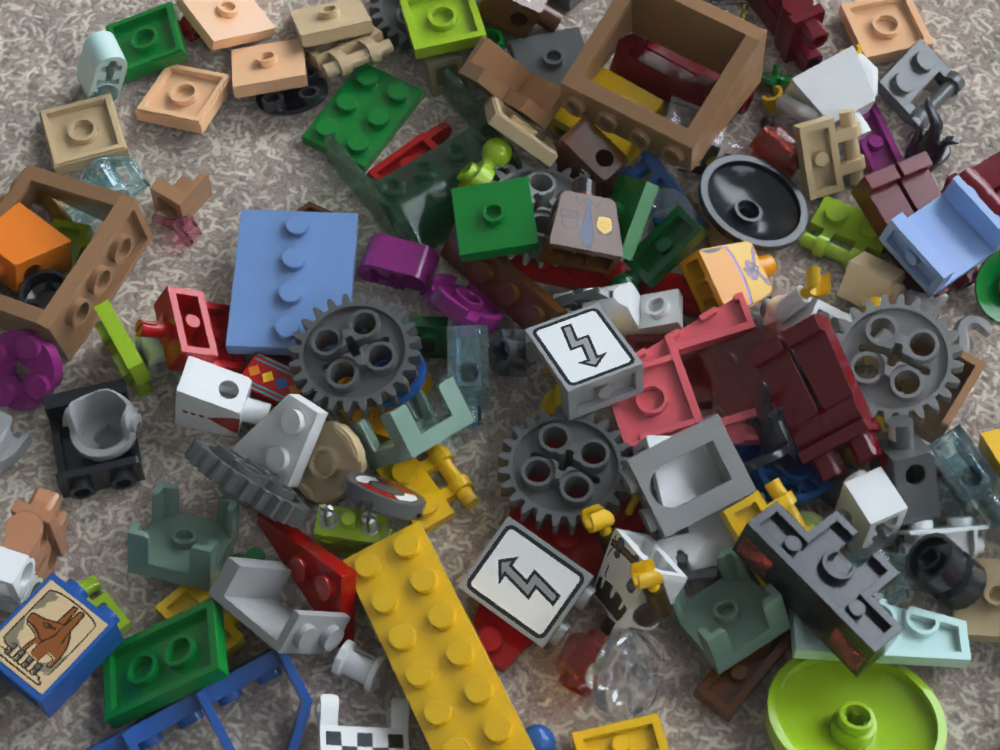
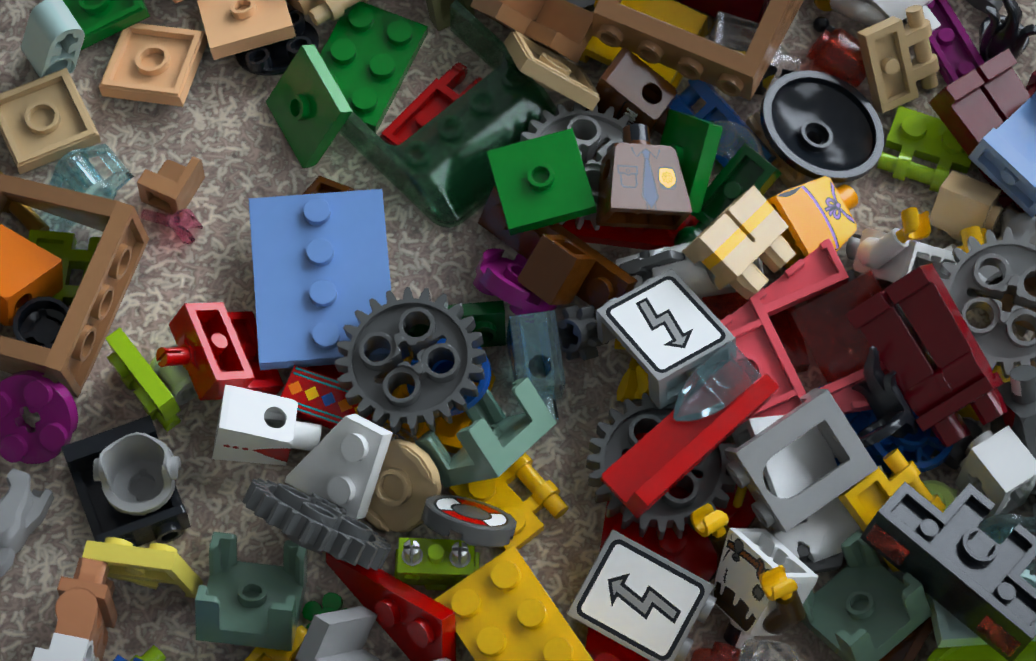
camera: 10 degrees left, 5 degrees up
(92, 501) = (144, 565): none -> light yellow wing
(308, 141) = (308, 106): none -> green plate
(398, 263) = (434, 240): magenta beam -> none
(495, 154) = (528, 101): lime plate -> none
(496, 293) = (556, 269): none -> reddish brown panel
(588, 445) = (677, 448): none -> red panel
(619, 401) = (715, 384): none -> clear light blue plate
(658, 283) = (737, 238): none -> tan hips

